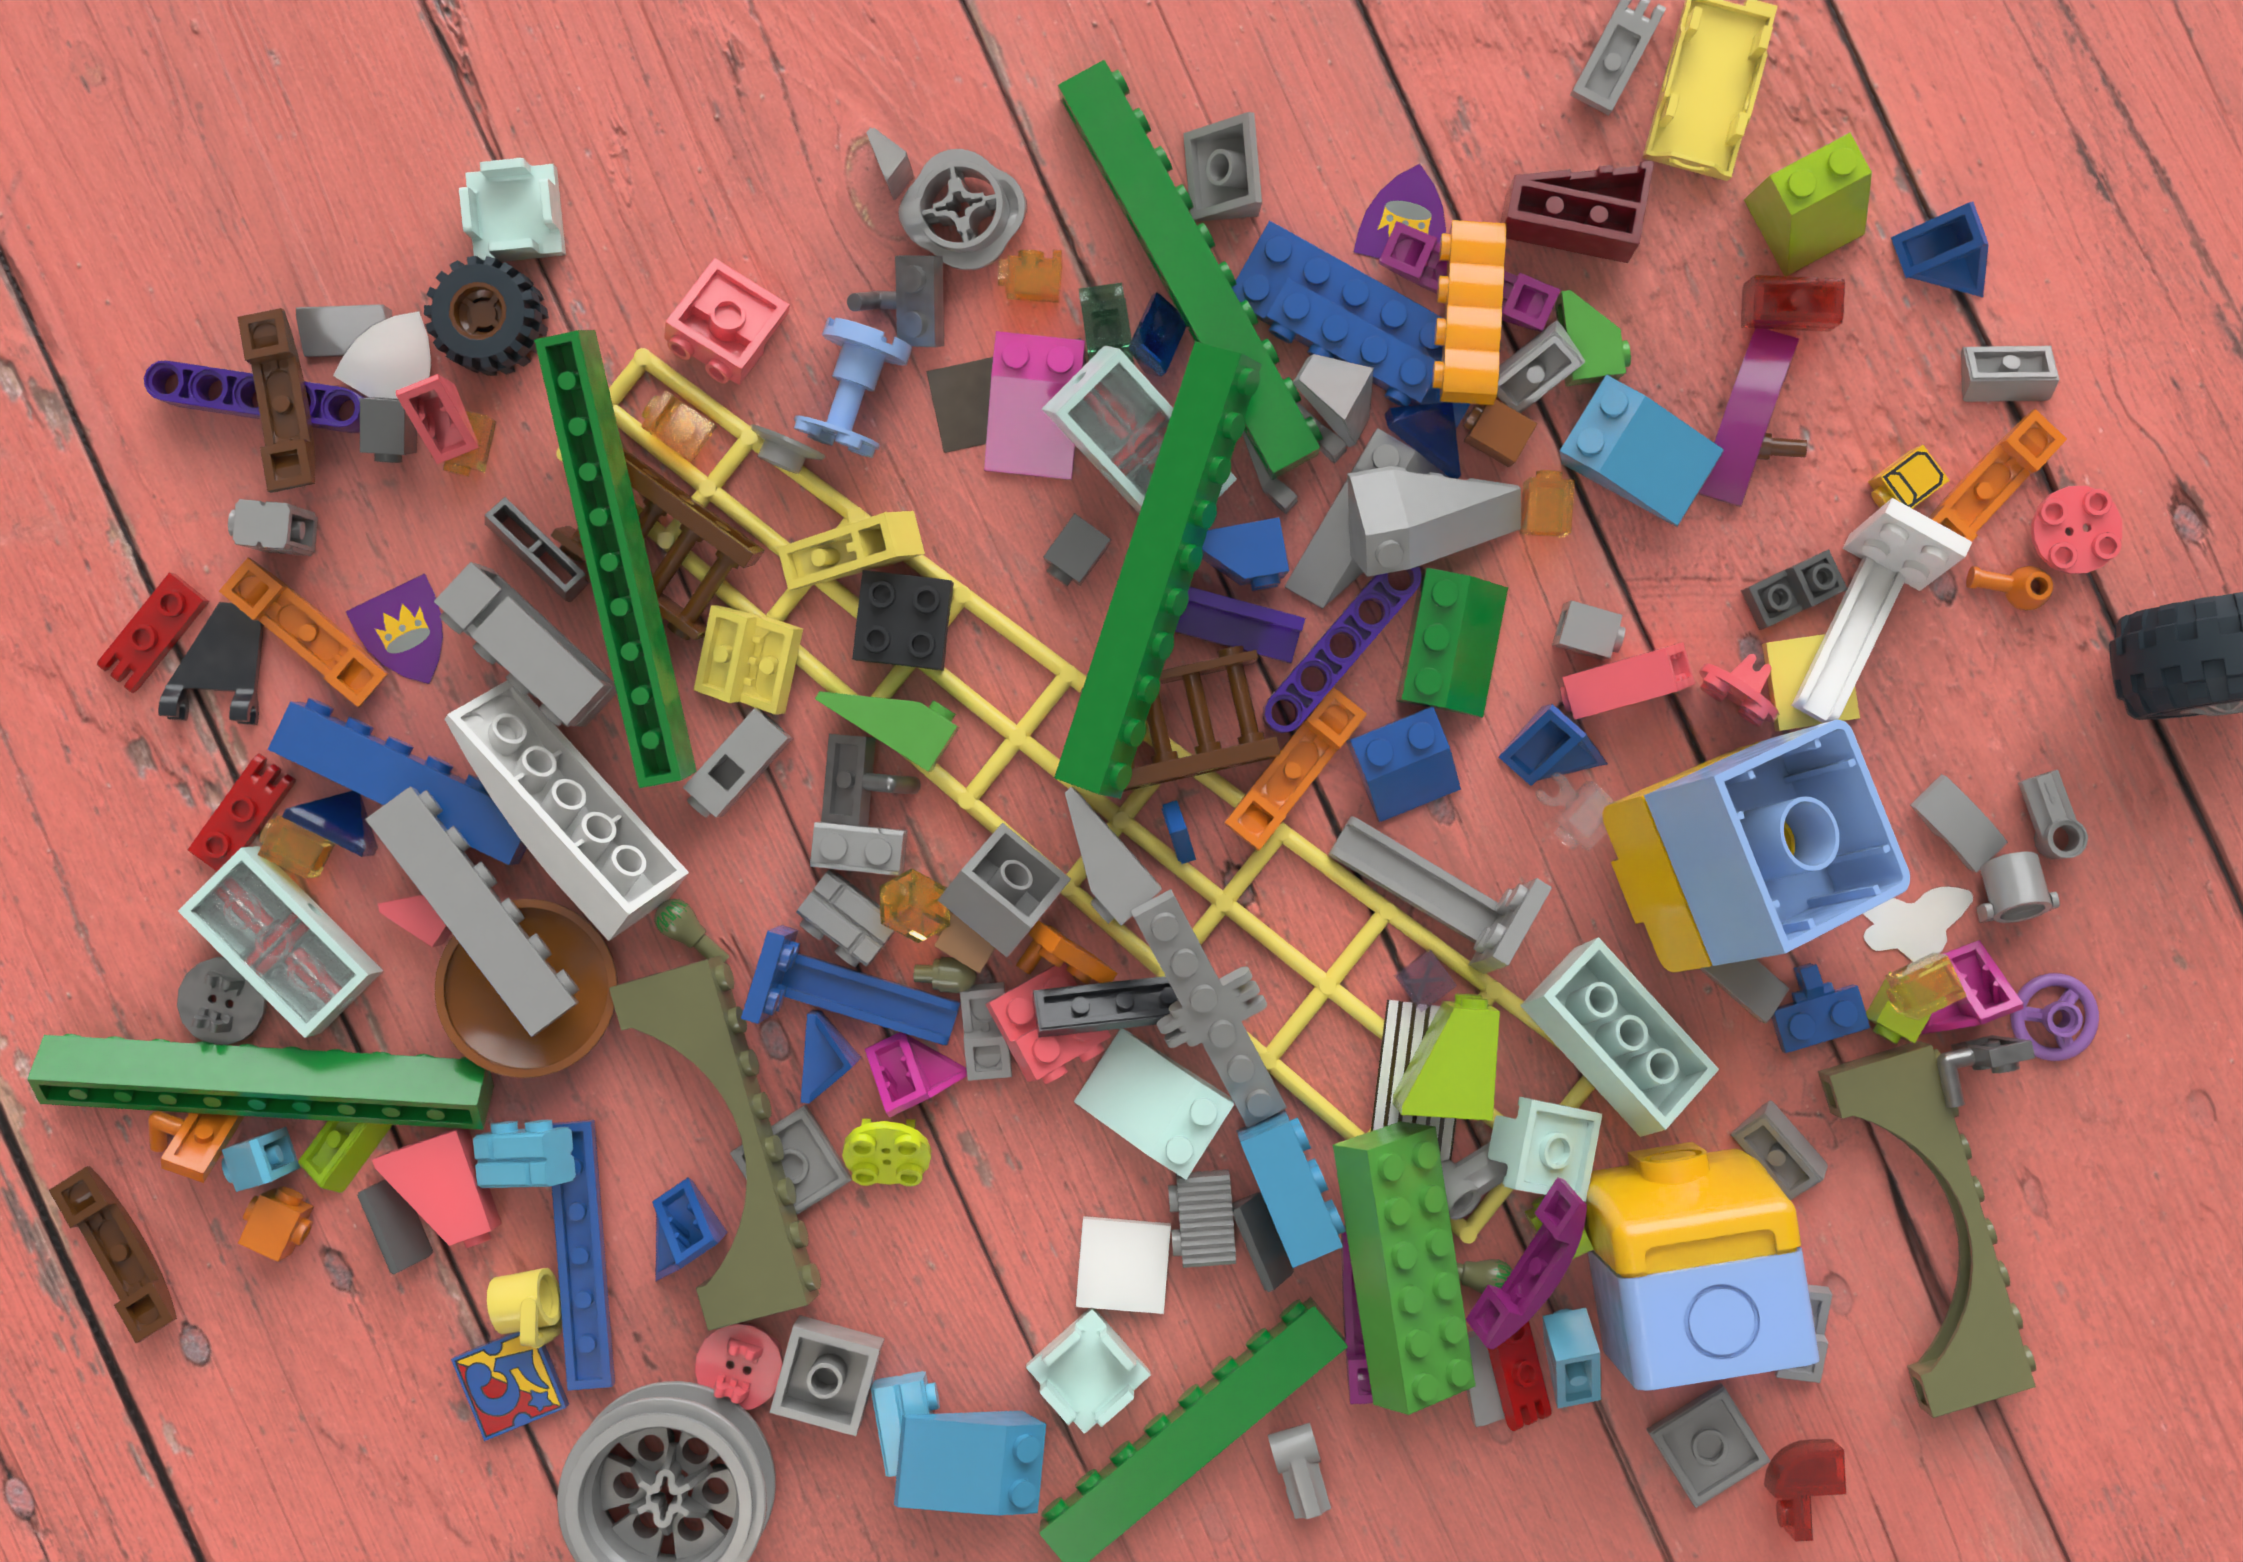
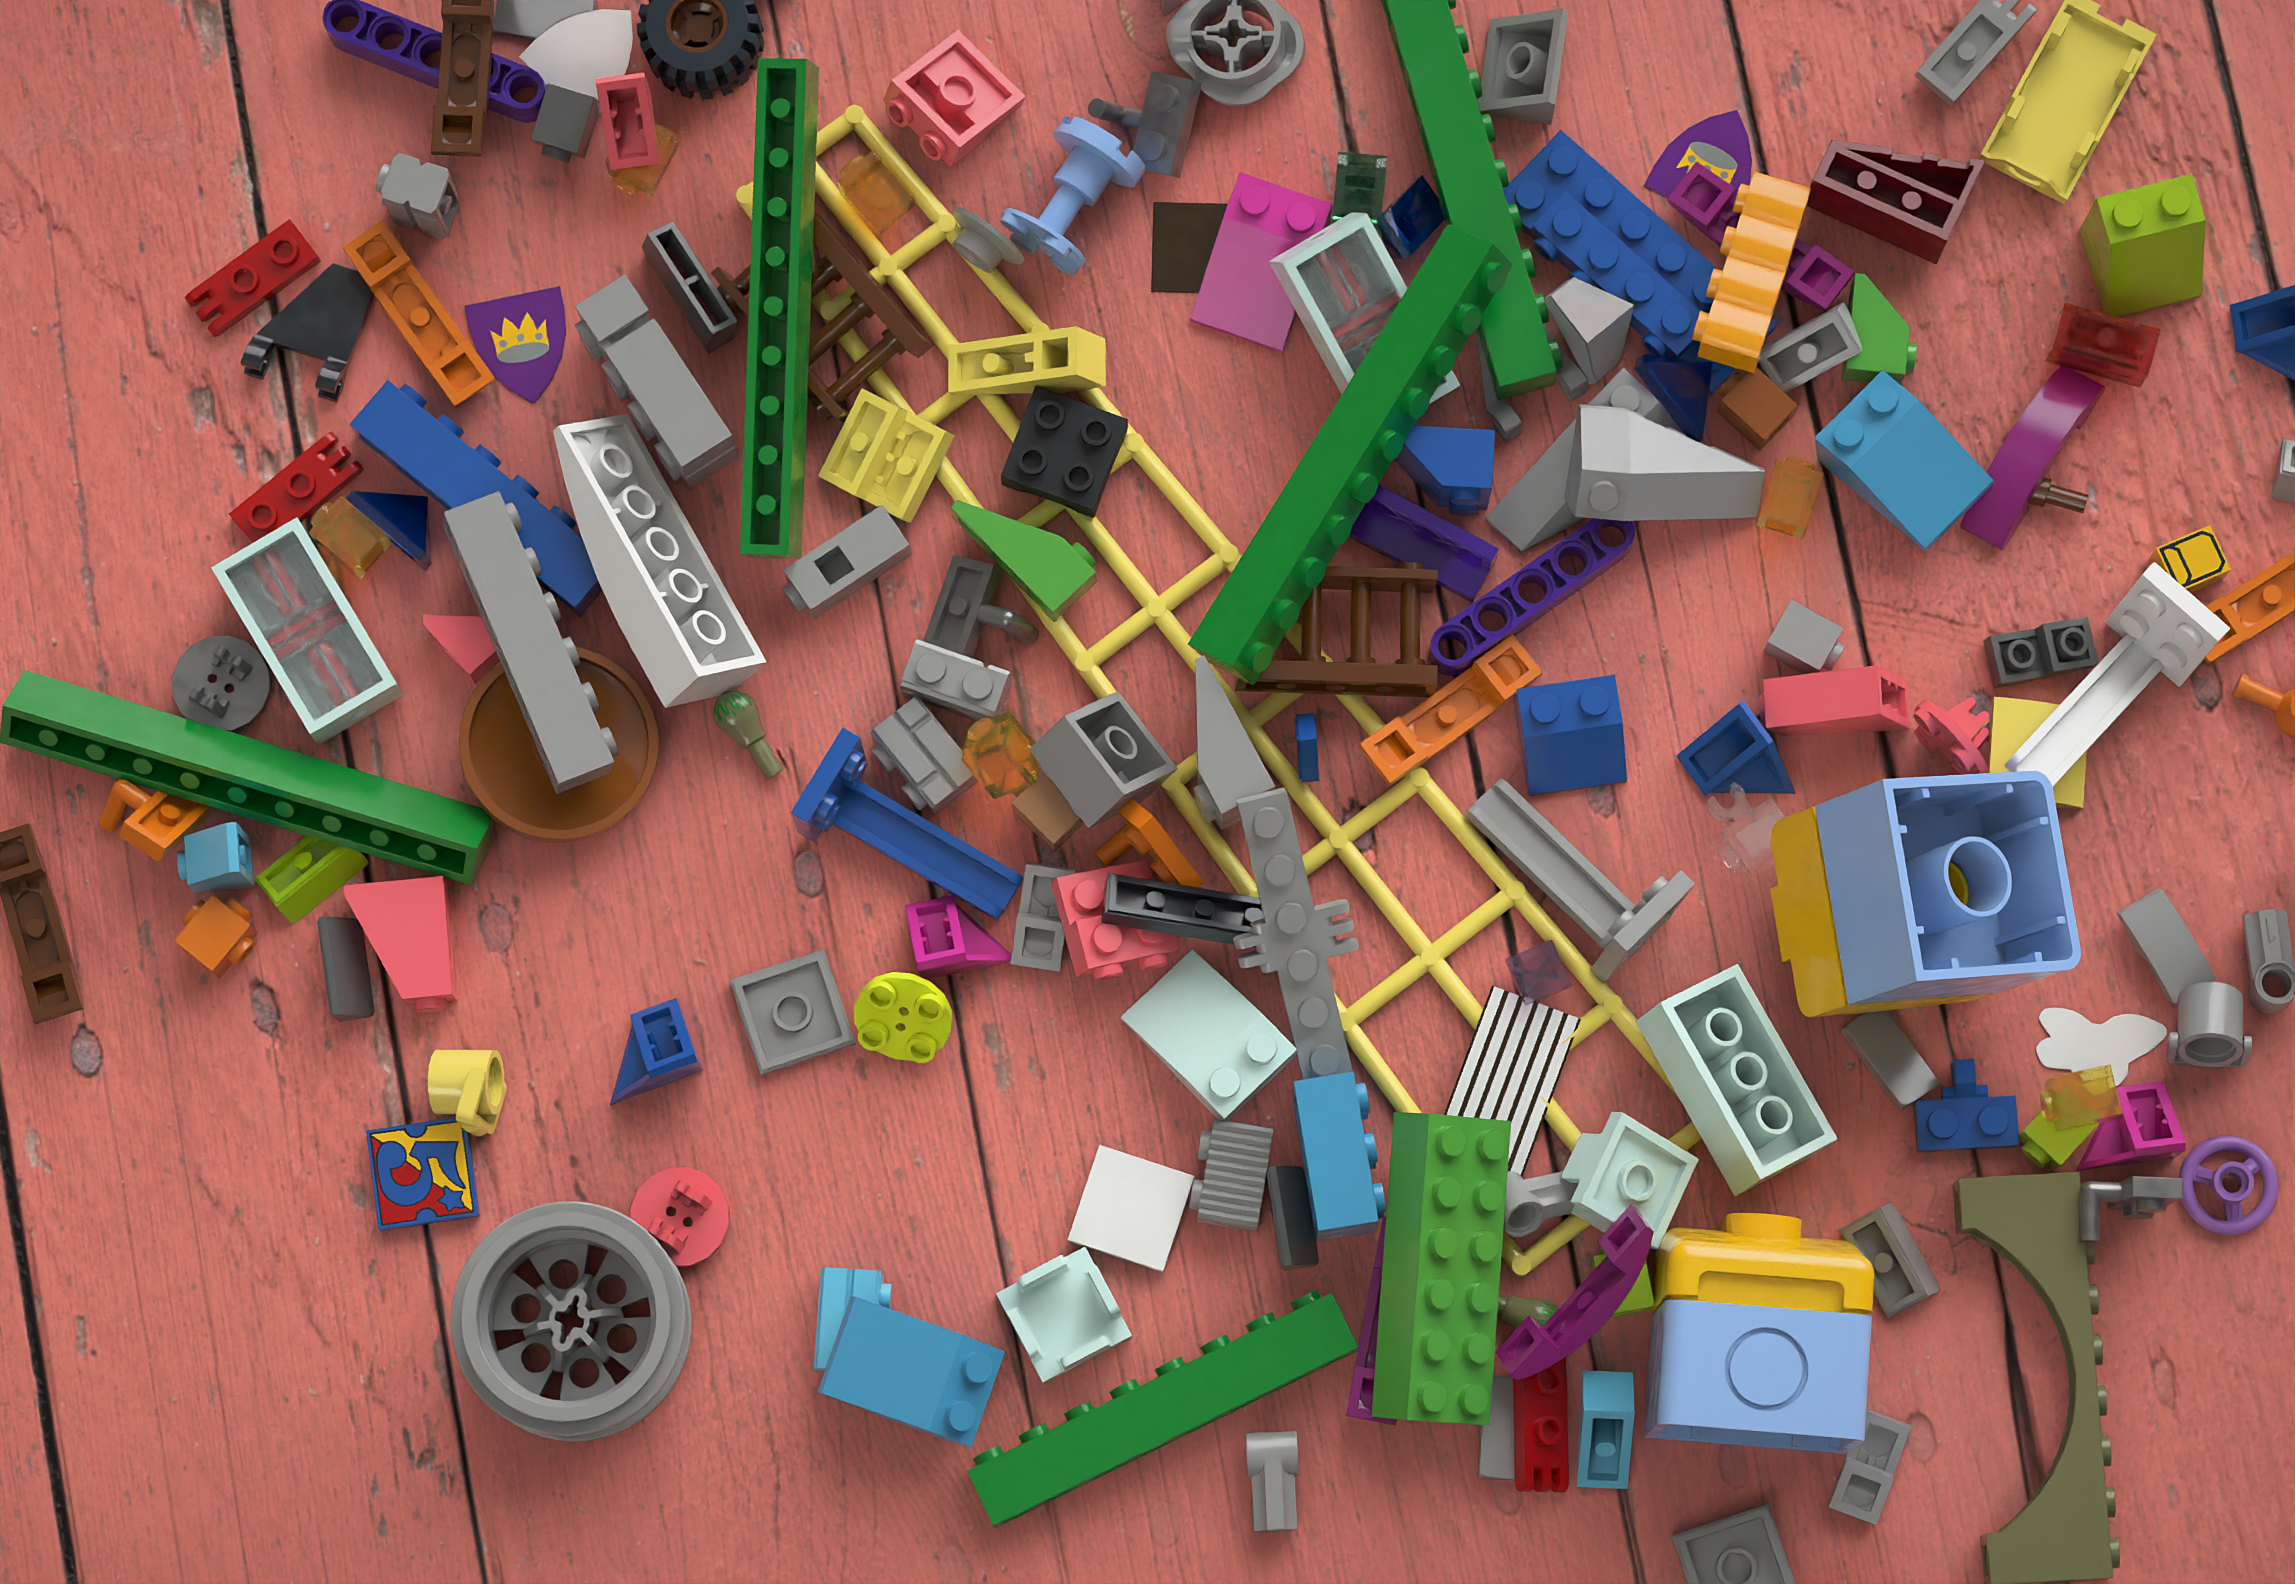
camera: 15 degrees right, 10 degrees down
(524, 1156) = (508, 922): medium azure brick -> none
(583, 1267) = (538, 1051): blue plate -> none
(699, 1018) = (743, 1100): olive arch -> none
(825, 1056) = (862, 900): blue slope -> none
(827, 1375) = (777, 1242): light grey brick -> none
(946, 975) = (1016, 844): olive cylinder -> none
(1031, 276) = (1292, 128): clear yellow brick -> none
(1076, 551) = (1268, 425): dark grey brick -> none
(1452, 642) = (1654, 618): green slope -> none
(1454, 1063) = (1547, 1060): lime slope -> none

